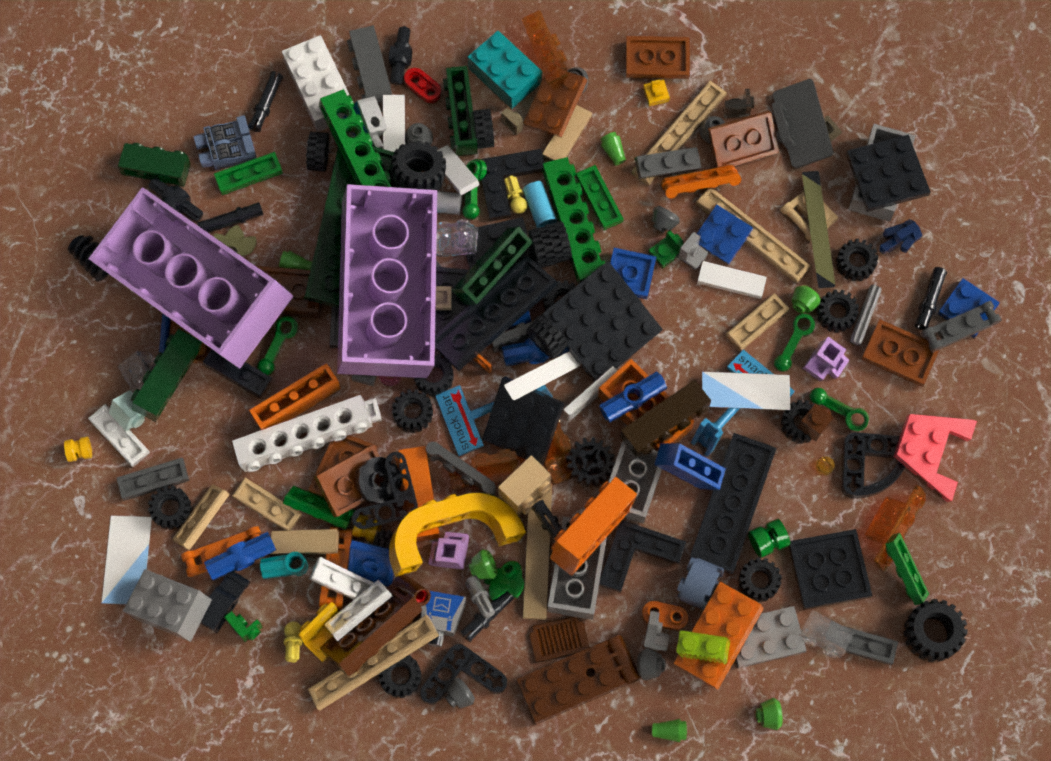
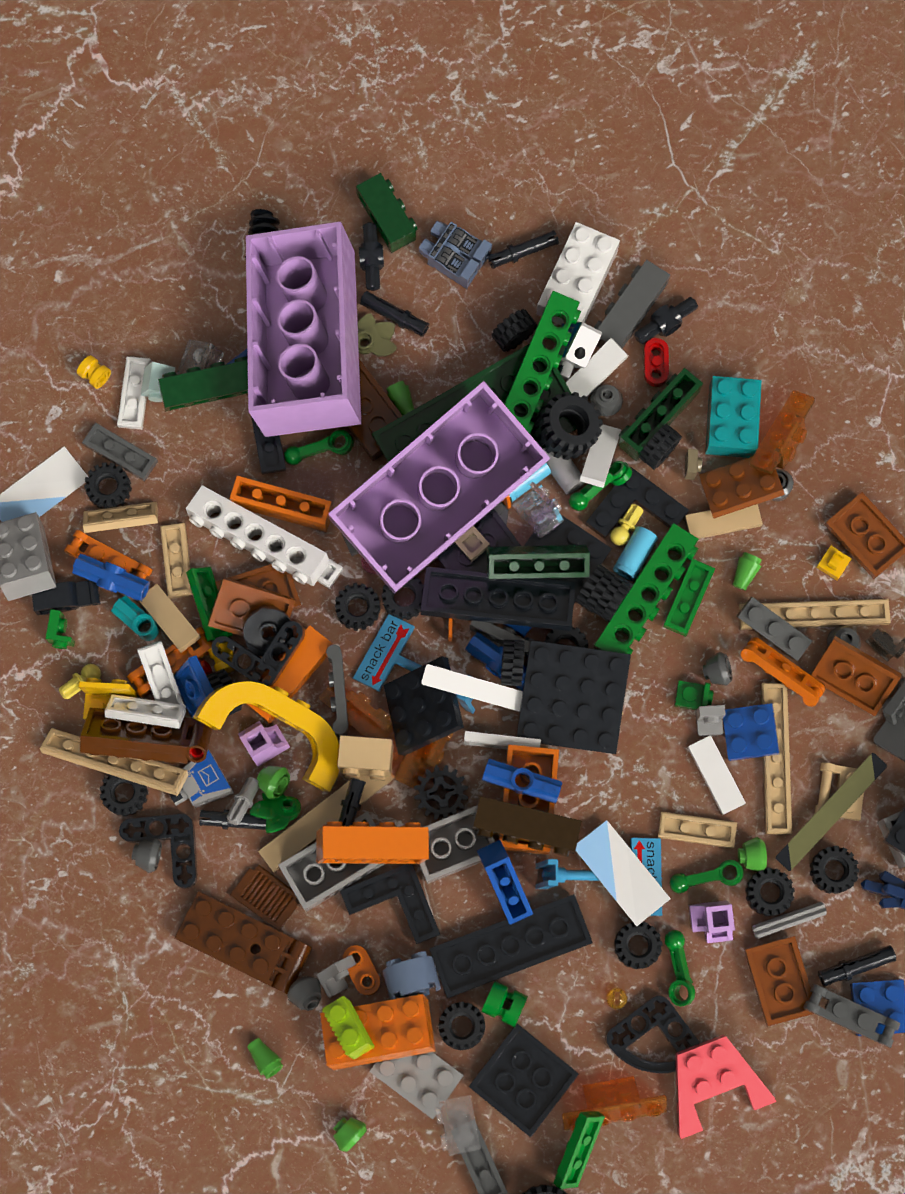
camera: 50 degrees right, 5 degrees up
(248, 173) = (446, 292): green plate -> none
(634, 269) = (647, 683): blue plate -> none
(816, 422) = (642, 958): reddish brown brick -> none

